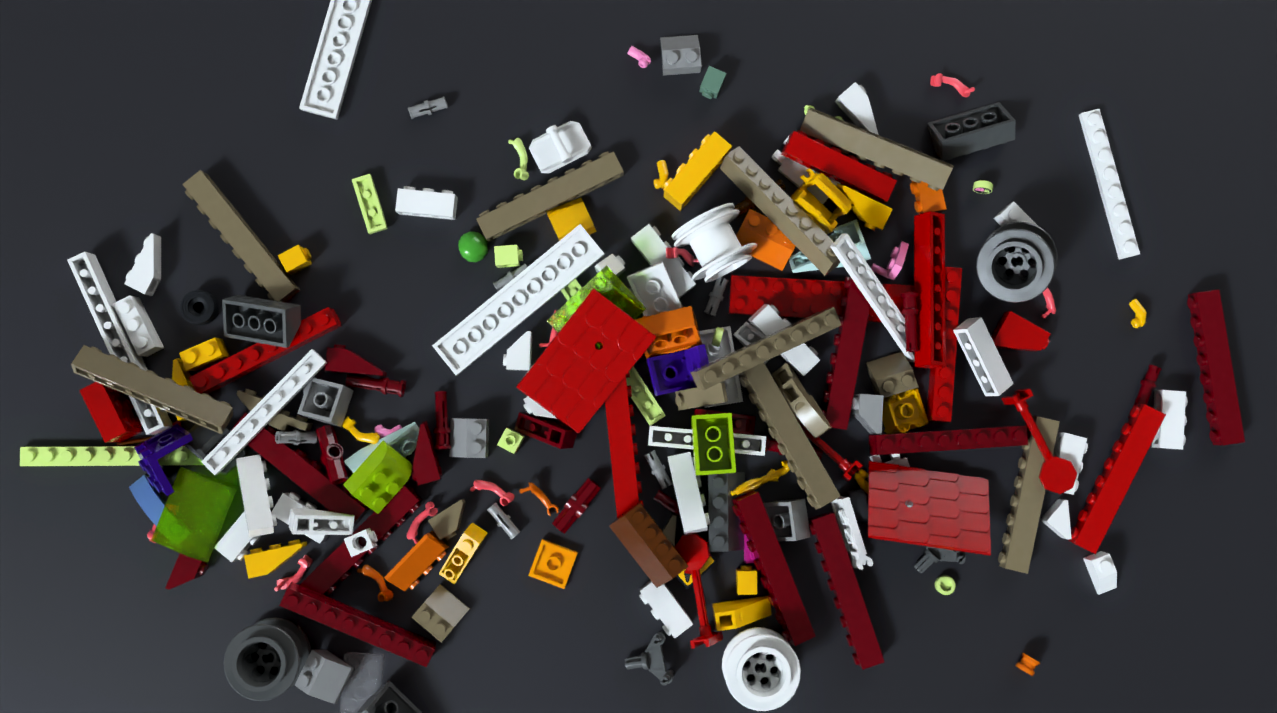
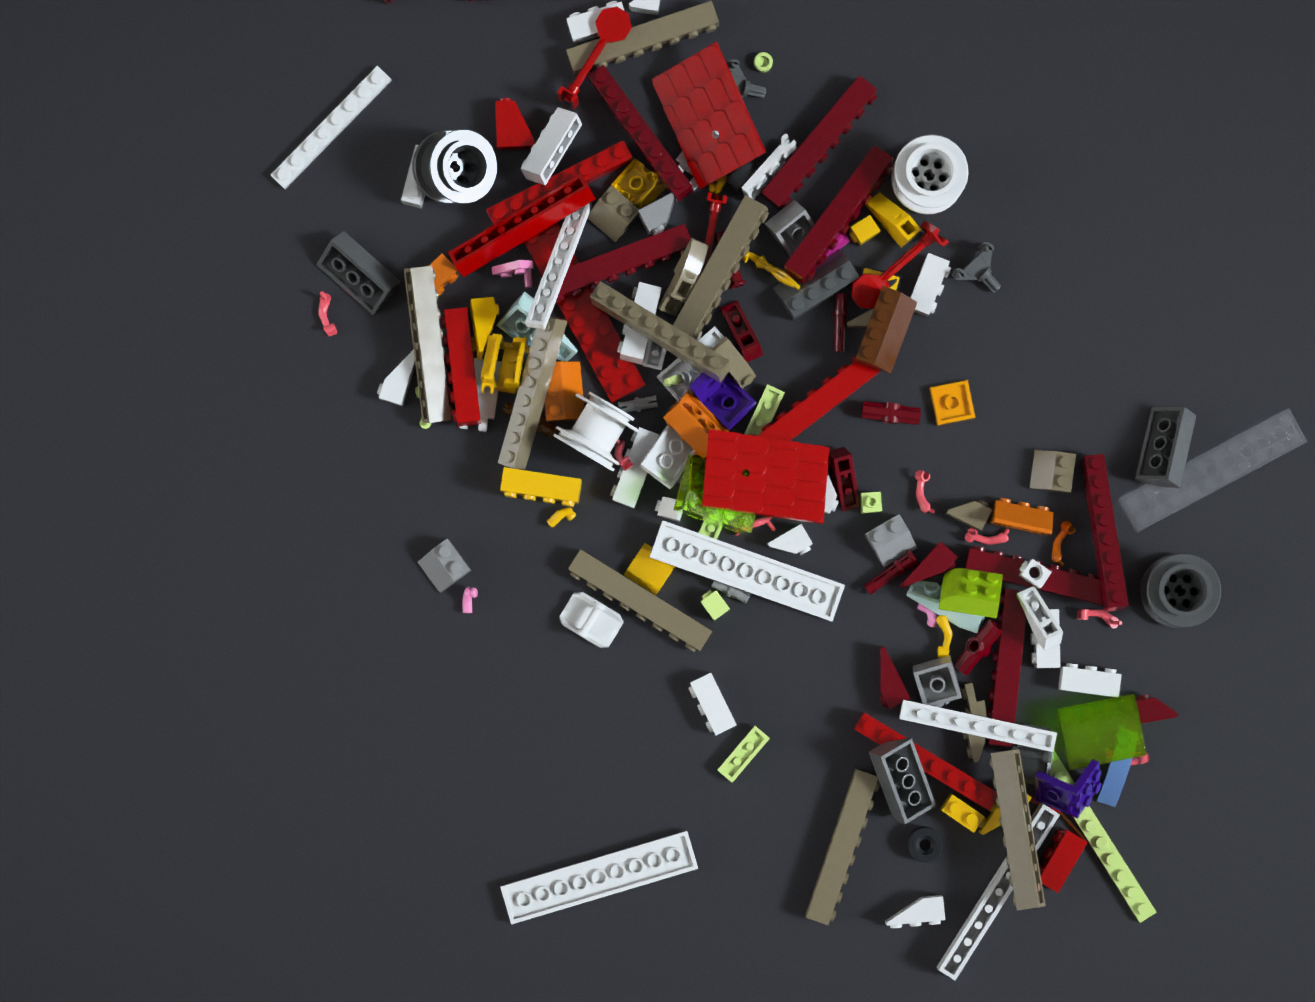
camera: 120 degrees left, 0 degrees up
(138, 326) = (973, 886): white brick -> none
(255, 496) = (1052, 688): white brick -> none
(267, 561) = (1101, 646): yellow slope -> none
(295, 259) = (831, 787): yellow brick -> none
(295, 437) = (982, 687): light grey pin -> none
(324, 676) = (1165, 534): light grey slope -> none
(384, 385) = (892, 641): dark red pin -> none
(427, 107) = (627, 757): light grey pin -> none
(463, 553) = (991, 484): yellow slope -> none
(473, 246) = (724, 641): bright green hair -> none
(512, 530) = (938, 479): light grey pin -> none
(520, 173) = (633, 639): yellowish green piece -> none
(541, 495) = (901, 448): orange piece -> none
(658, 469) = (816, 362): light grey pin -> none
(683, 439) = (767, 336): white brick -> none
(687, 493) = (818, 328): white brick -> none
(712, 82) = (453, 521): sand green brick -> none
(713, 444) = (769, 327): lime brick -> none
(910, 312) = (551, 230): dark red pin -> none
(983, 187) = (401, 233): yellowish green tile -> none
(1050, 304) = (466, 117): coral piece -> none
(1140, 314) = (430, 34): yellow arm -> none

